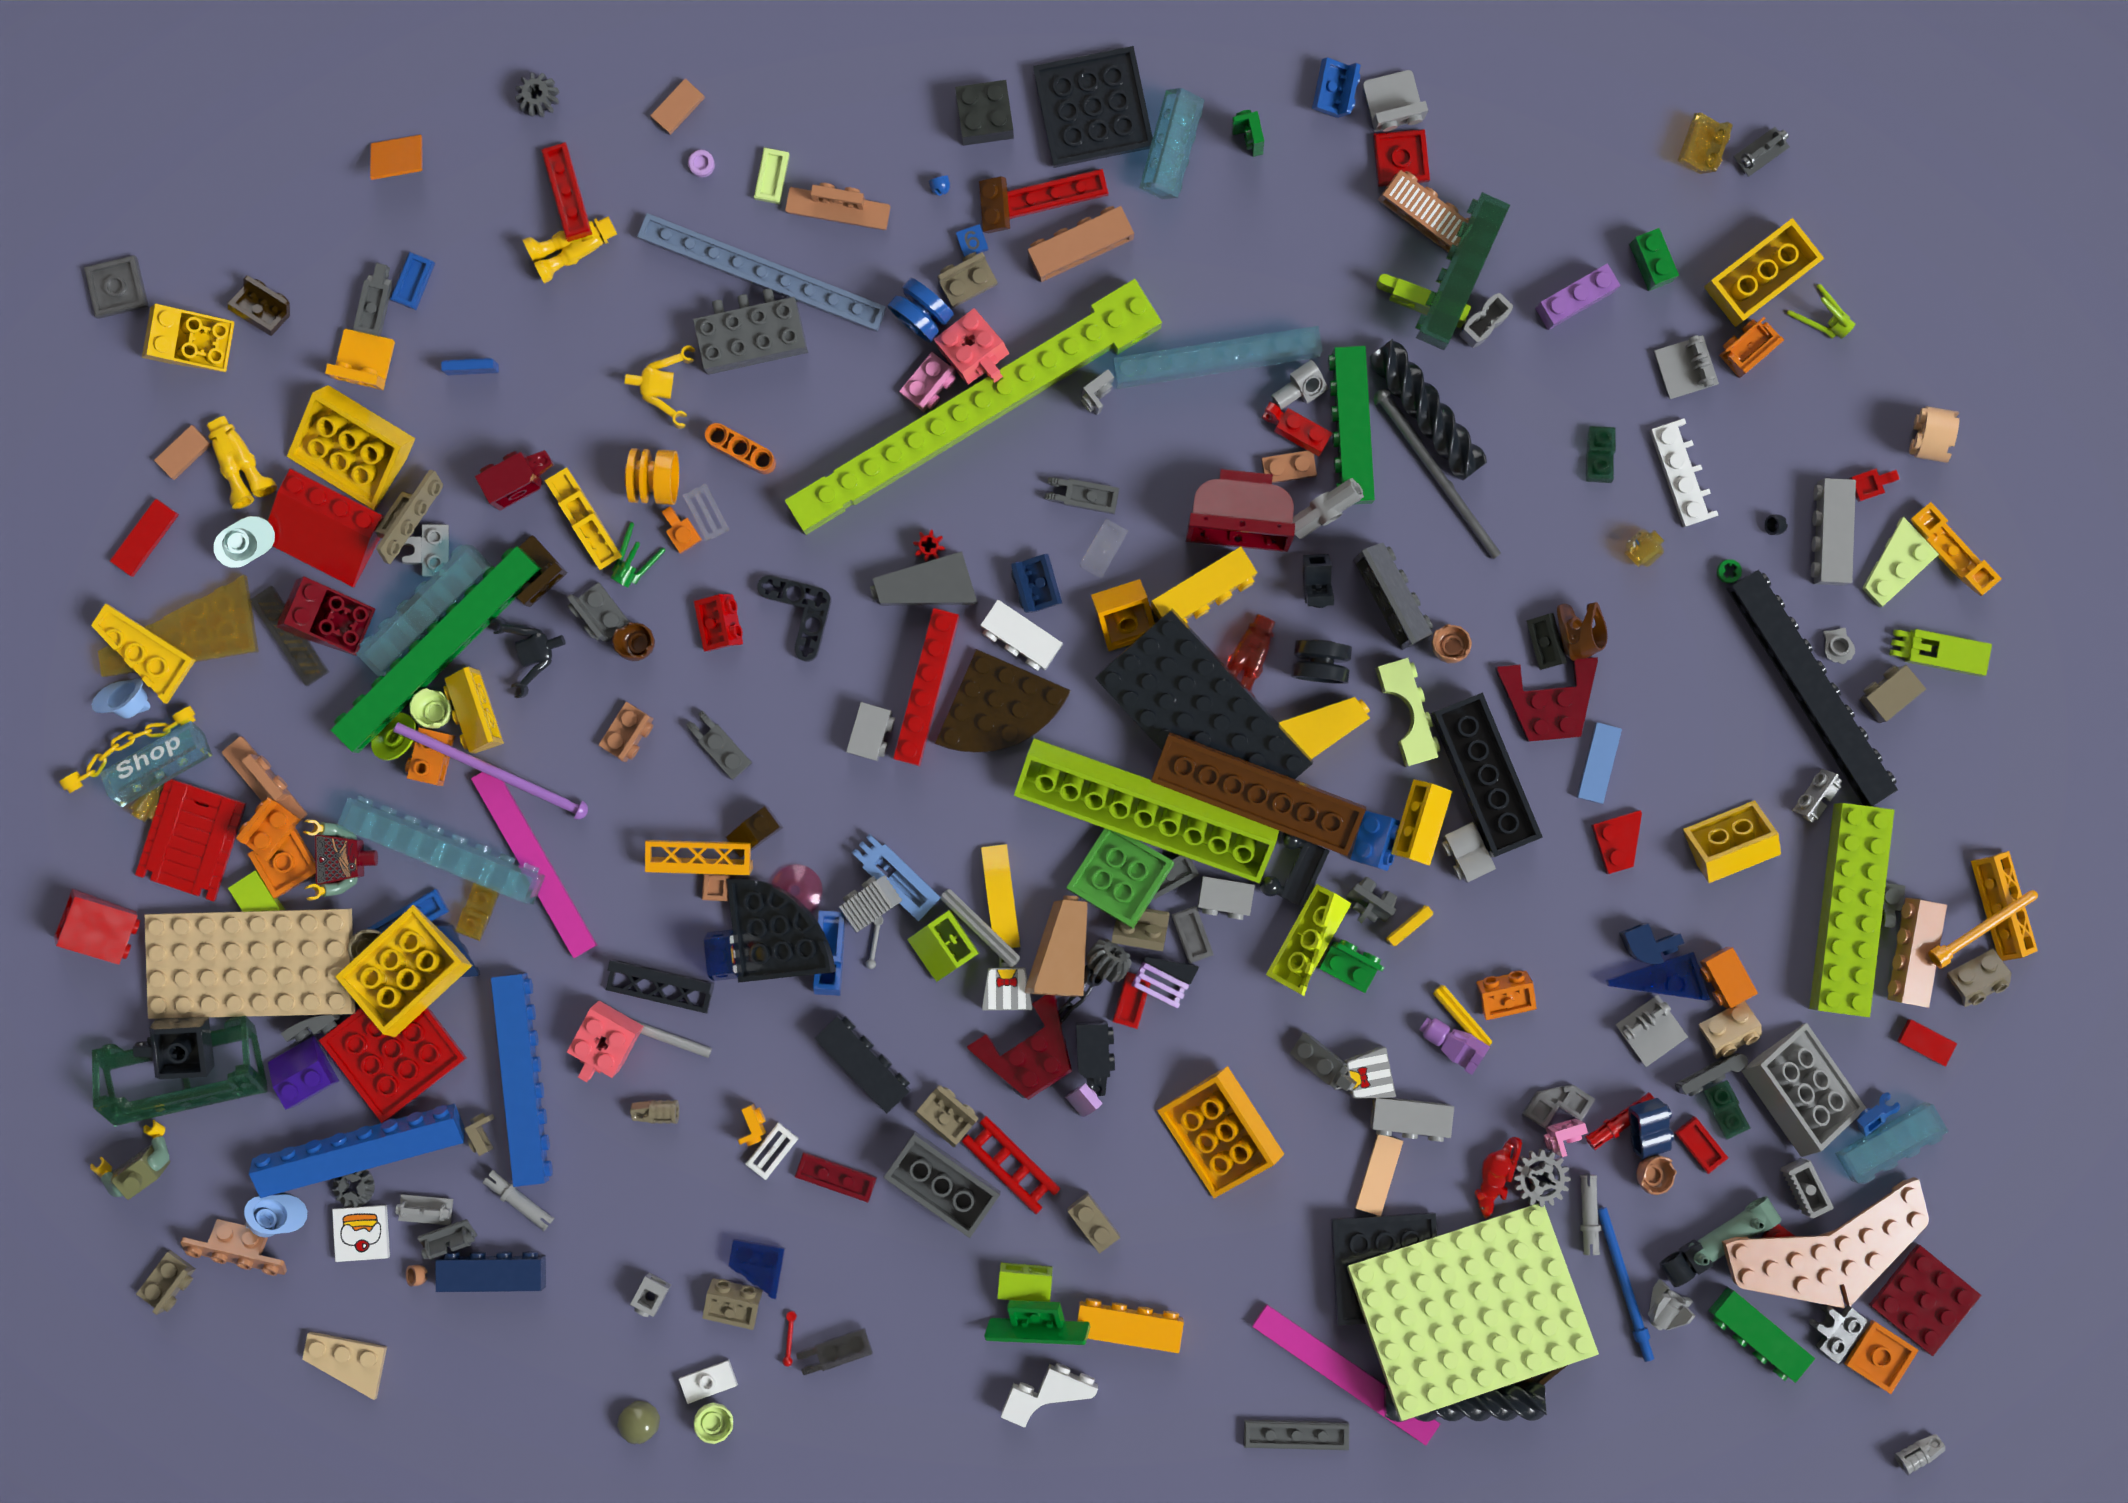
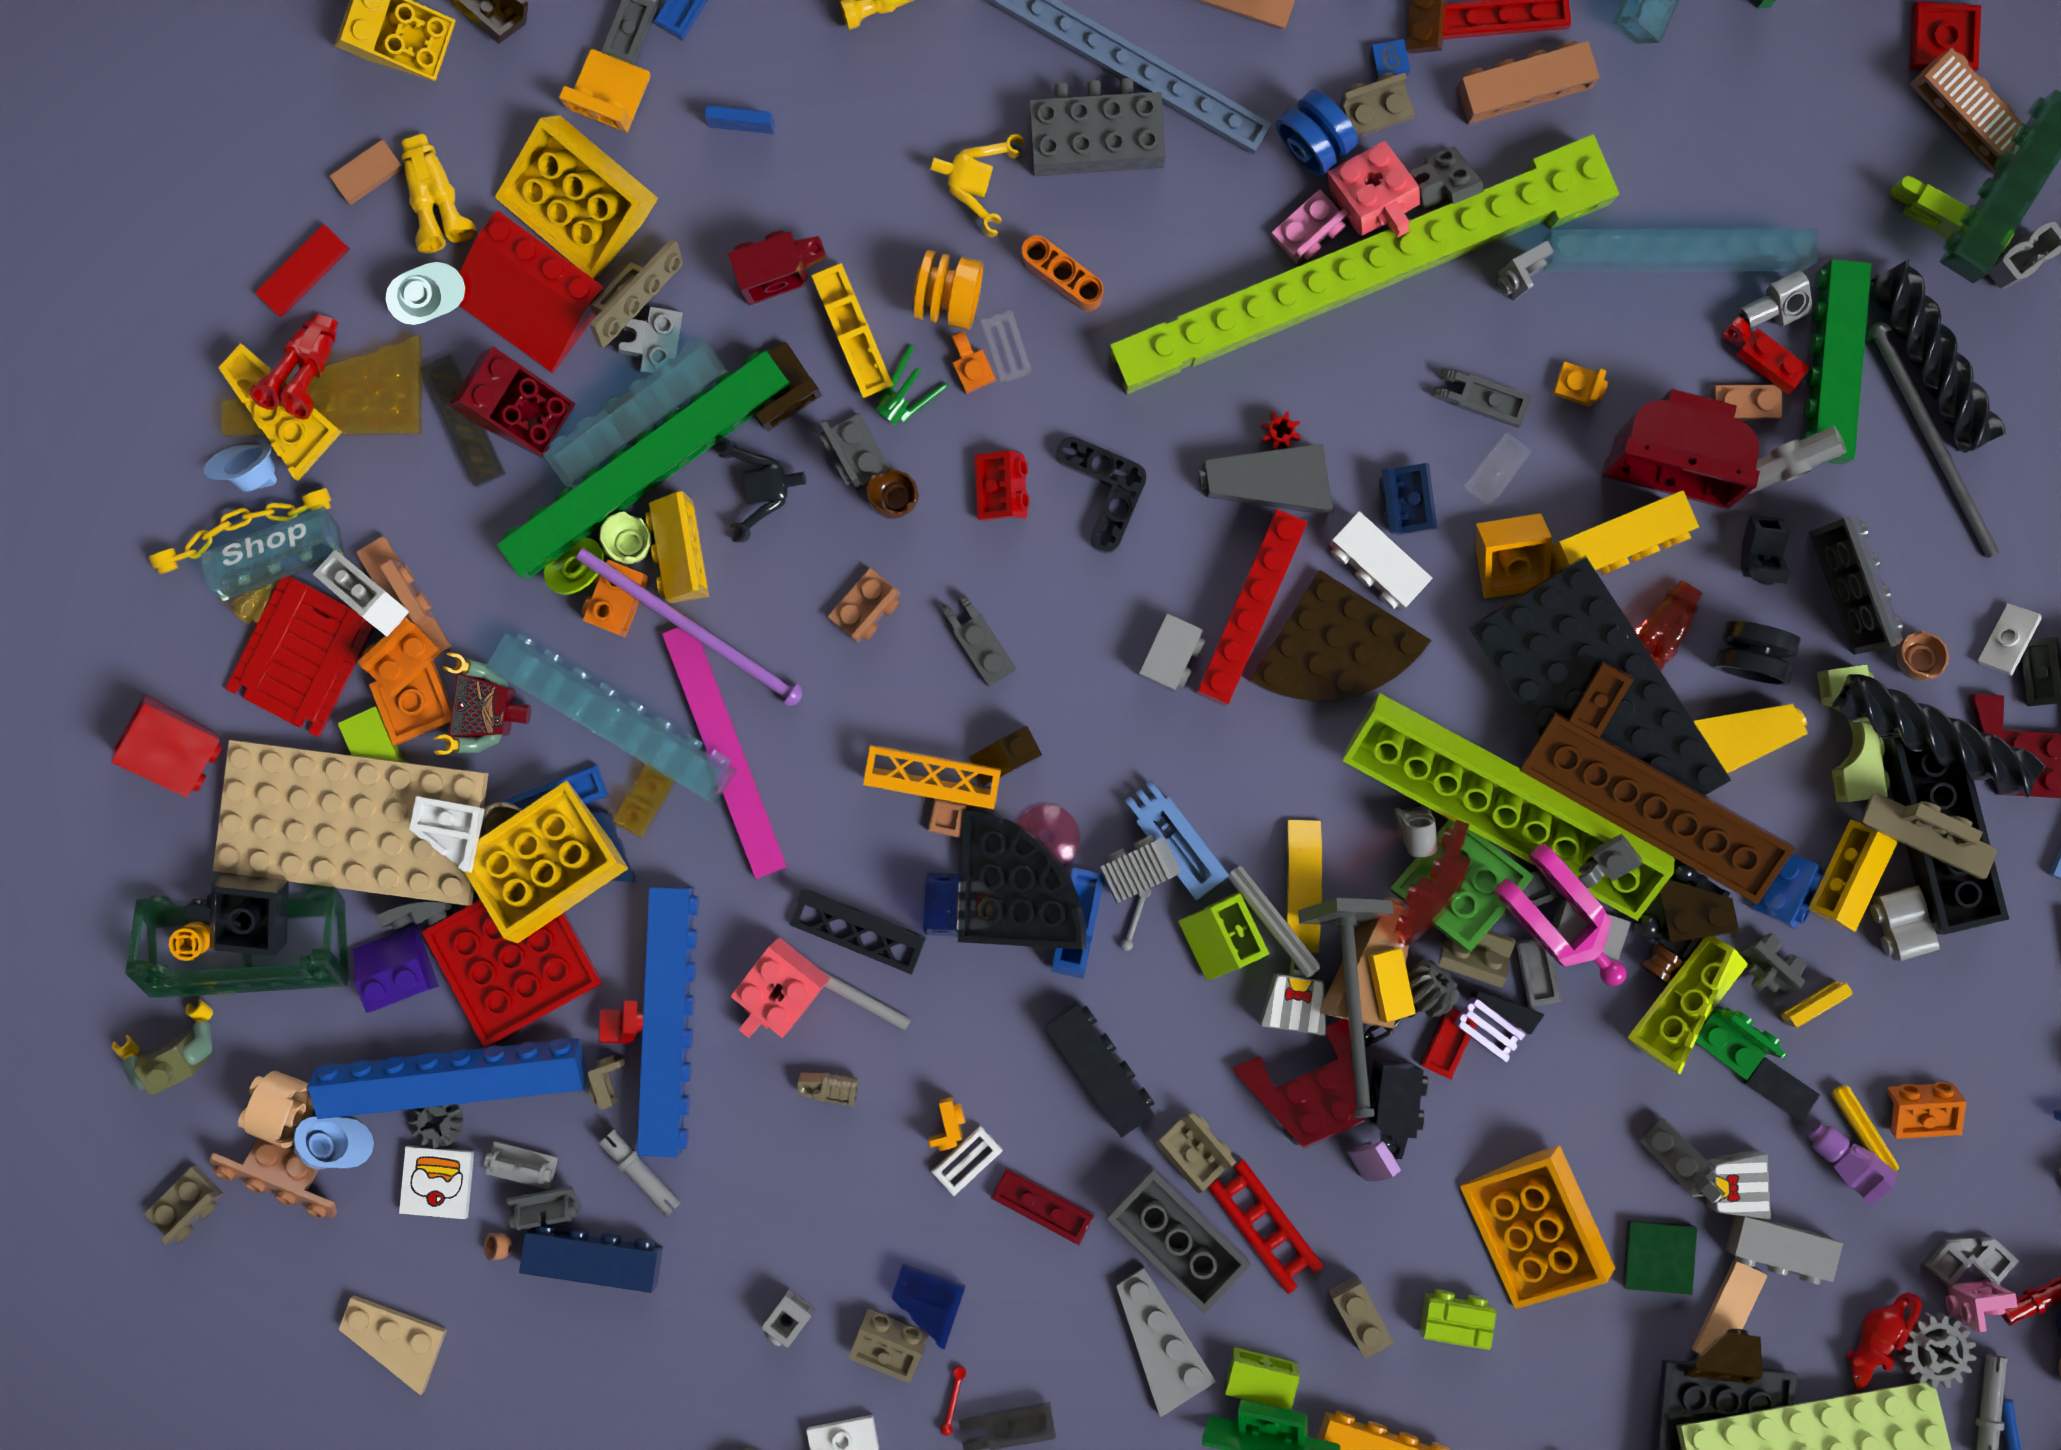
camera: 20 degrees right, 0 degrees up
(143, 1071) = (196, 935): none -> light orange wheel
(160, 600) = (310, 351): none -> red piece
(227, 1194) = (276, 1108): none -> light nougat brick
(230, 784) = (361, 593): none -> white brick
(327, 956) = (449, 829): none -> white wing
(485, 1088) = (620, 1025): none -> red bracket
(946, 1270) = (1166, 1351): none -> light grey wing
(1025, 328) = (1446, 175): none -> dark grey plate
(1032, 913) = (1347, 914): none -> dark grey tile
(1075, 962) = (1391, 984): none -> yellow tile
(1080, 840) = (1417, 830): none -> light grey piece
(1097, 890) = (1433, 897): none -> clear red slope
(1157, 473) = (1580, 384): none -> light orange bracket
(1169, 1214) = (1457, 1320): none -> lime brick
(1200, 717) = (1600, 699): none -> reddish brown plate
(1224, 905) = (1589, 942): none -> dark pink piece
(1227, 838) = (1611, 858): none -> dark grey plate
(1285, 913) = (1661, 963): none -> reddish brown wheel
(1303, 869) = (1696, 912): none -> dark brown wing
(1319, 1140) = (1660, 1257): none -> dark green tile
(1378, 1209) = (1729, 1358): none -> dark brown slope
(1394, 995) = (1782, 1089): none -> black tile
(1470, 706) = (1929, 728): none -> black piece
(1471, 781) = (1932, 833): none -> dark tan bracket
(1517, 620) = (2009, 639): none -> white plate

